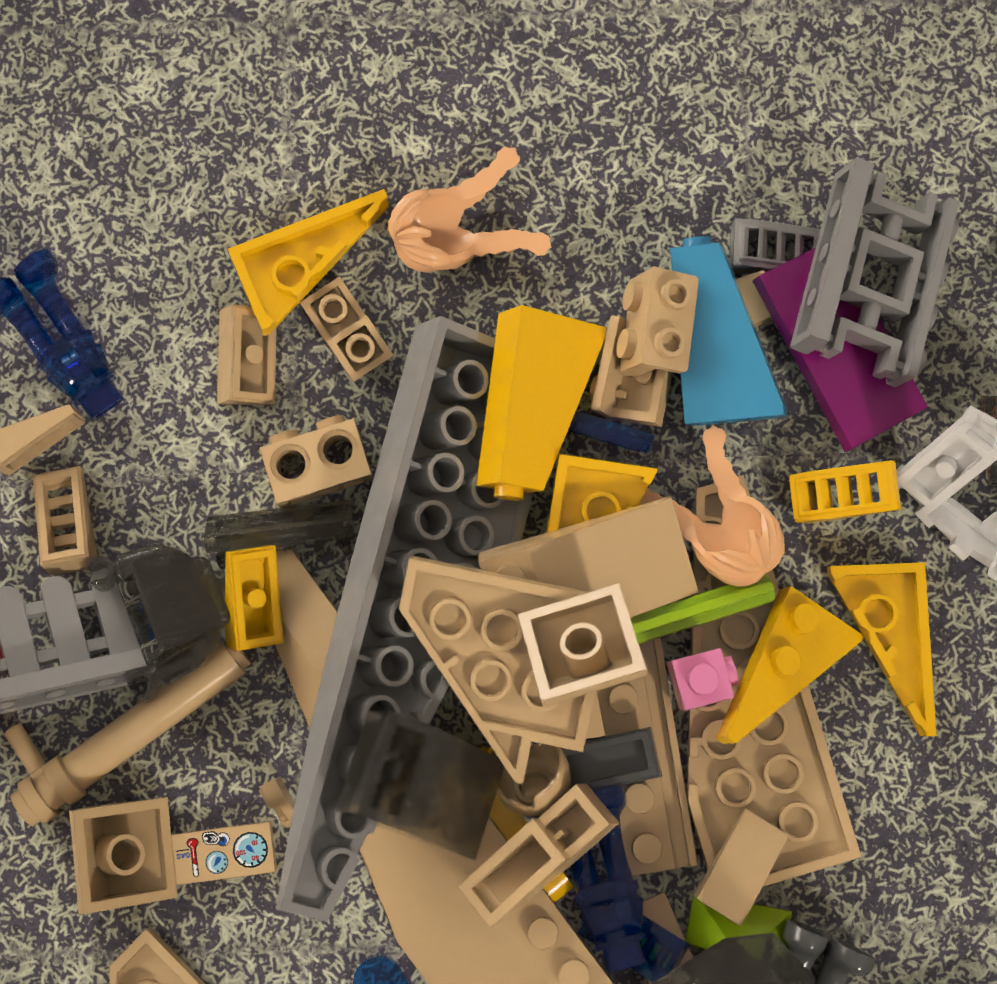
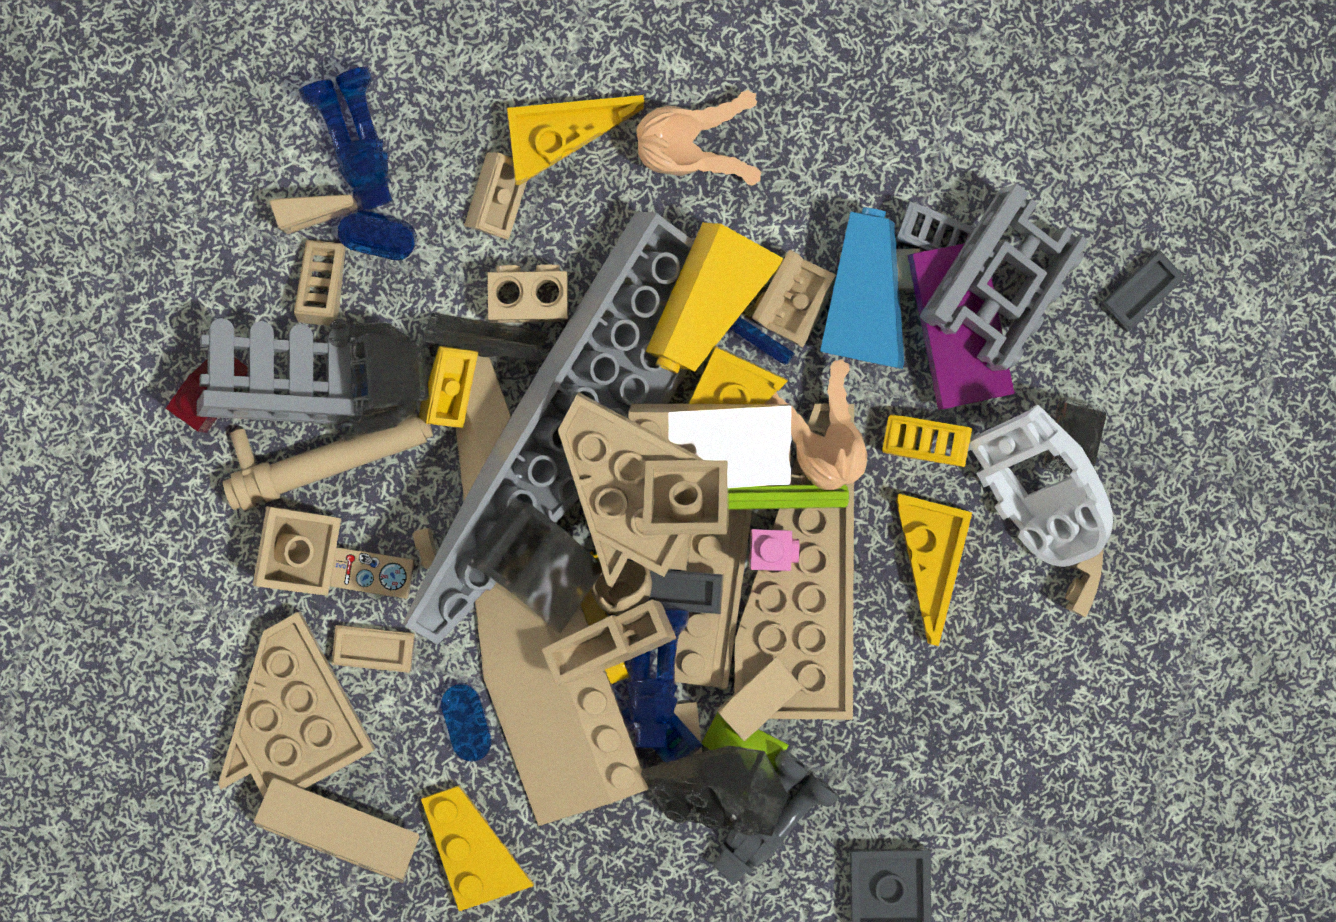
camera: 10 degrees right, 5 degrees up
(116, 443) = (377, 235): none -> clear blue tile
(251, 946) = (373, 648): none -> tan tile
(346, 329) = (581, 198): tan slope -> none
(657, 322) = (822, 267): tan bracket -> none
(790, 653) = (847, 550): yellow wing -> none

